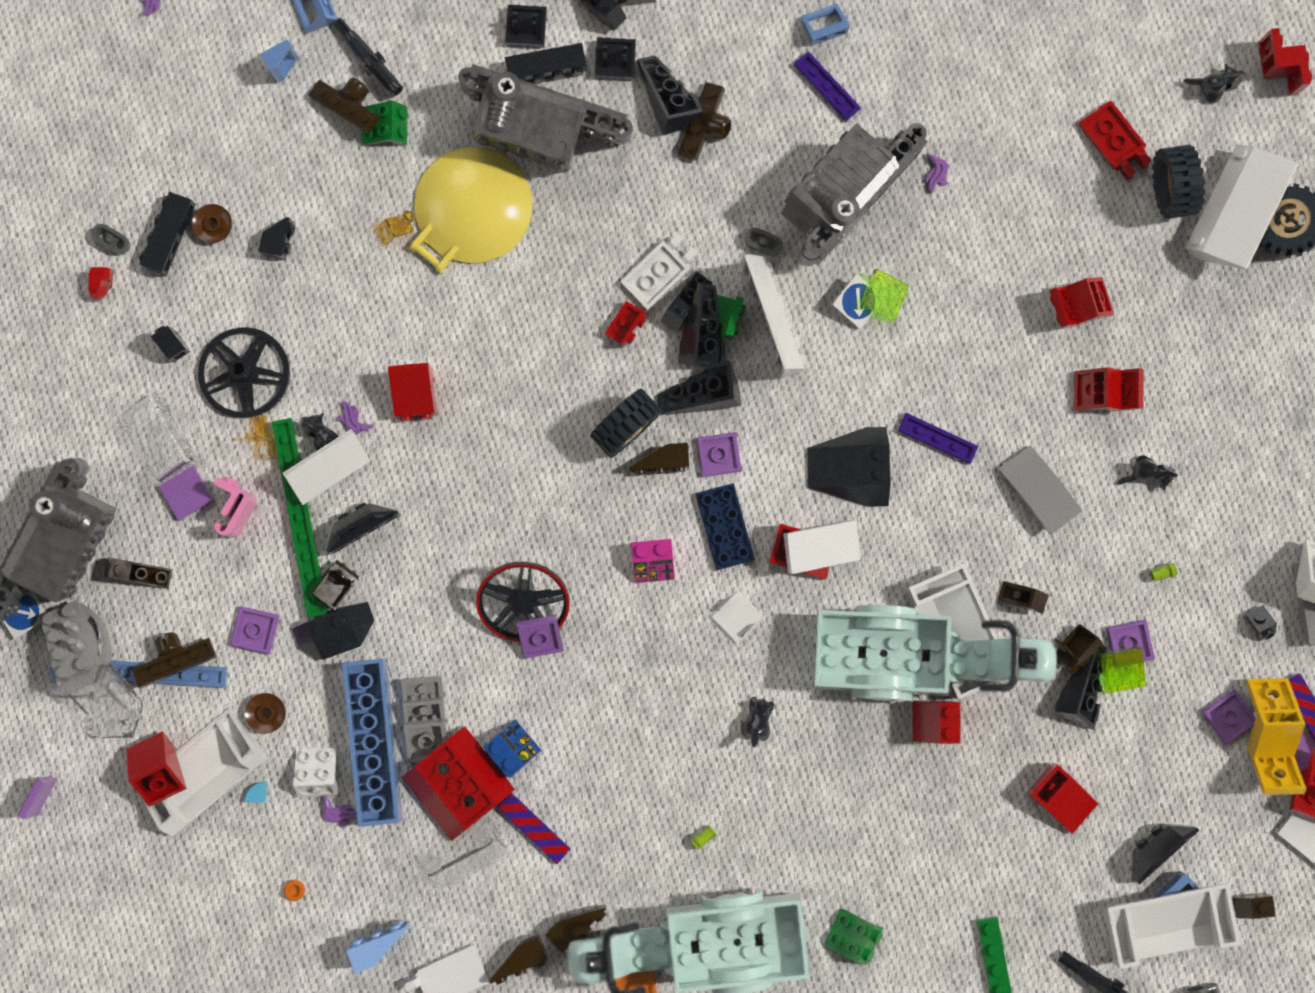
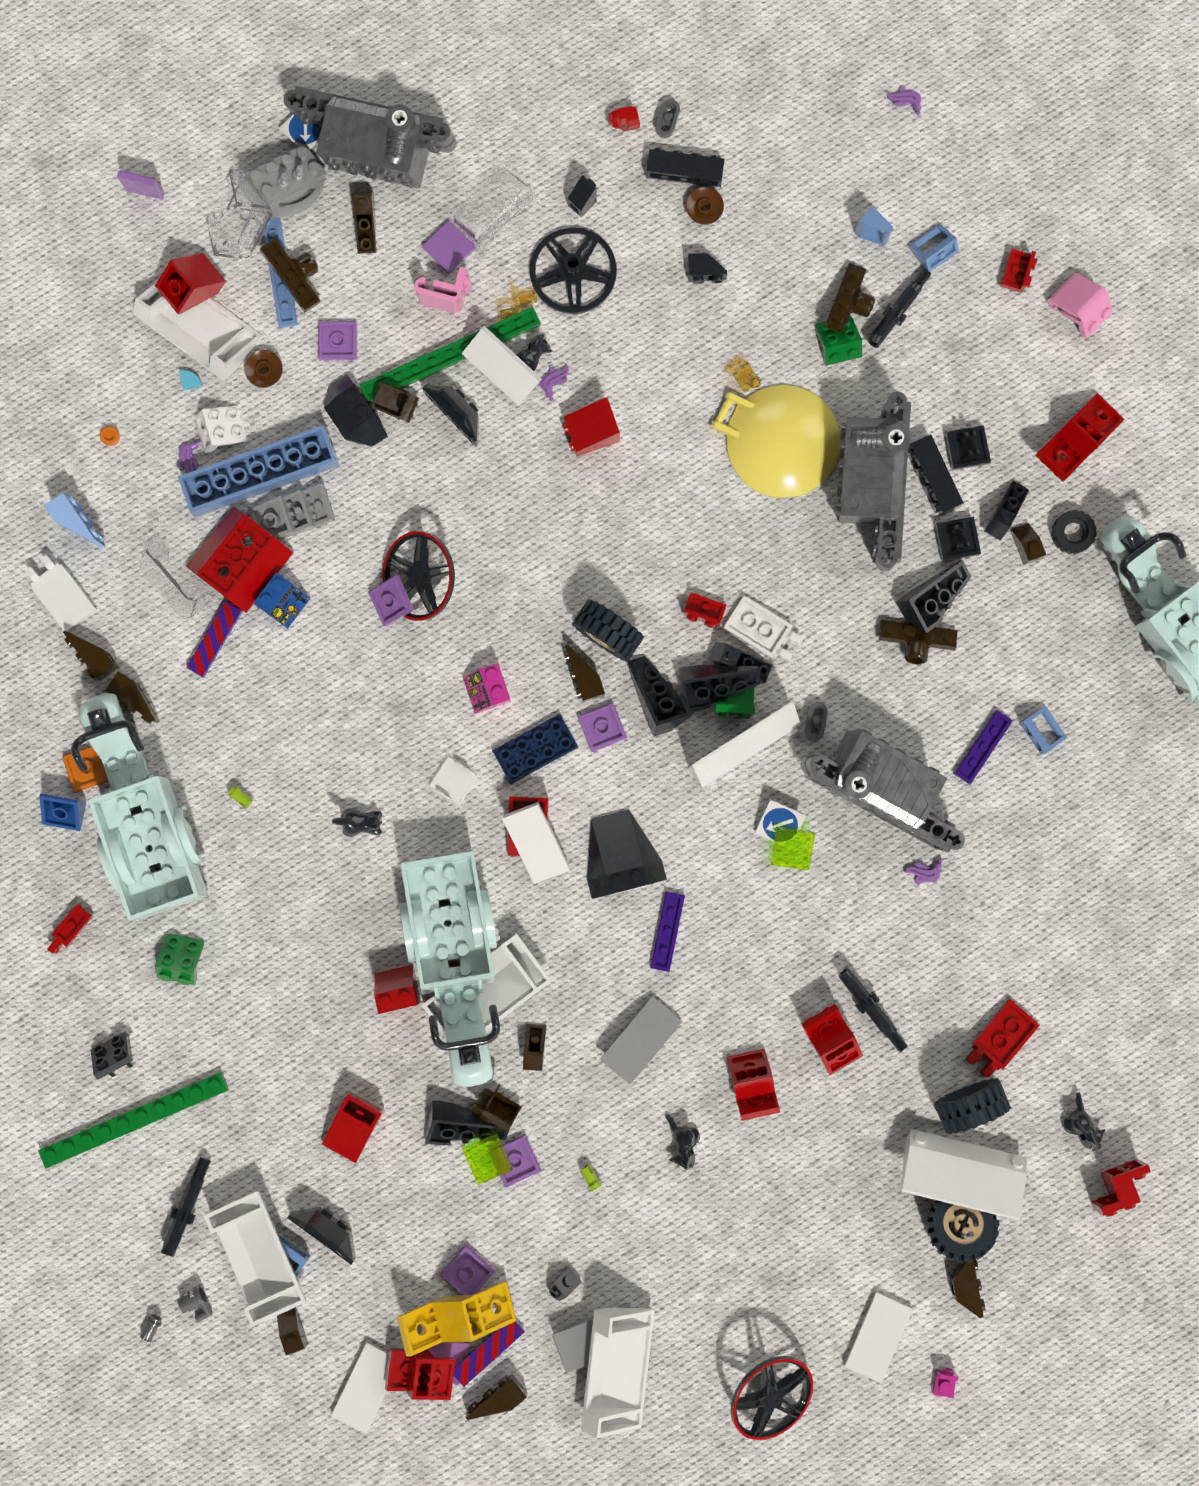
camera: 80 degrees right, 0 degrees up
(1054, 259) = (868, 1004): none -> black piece

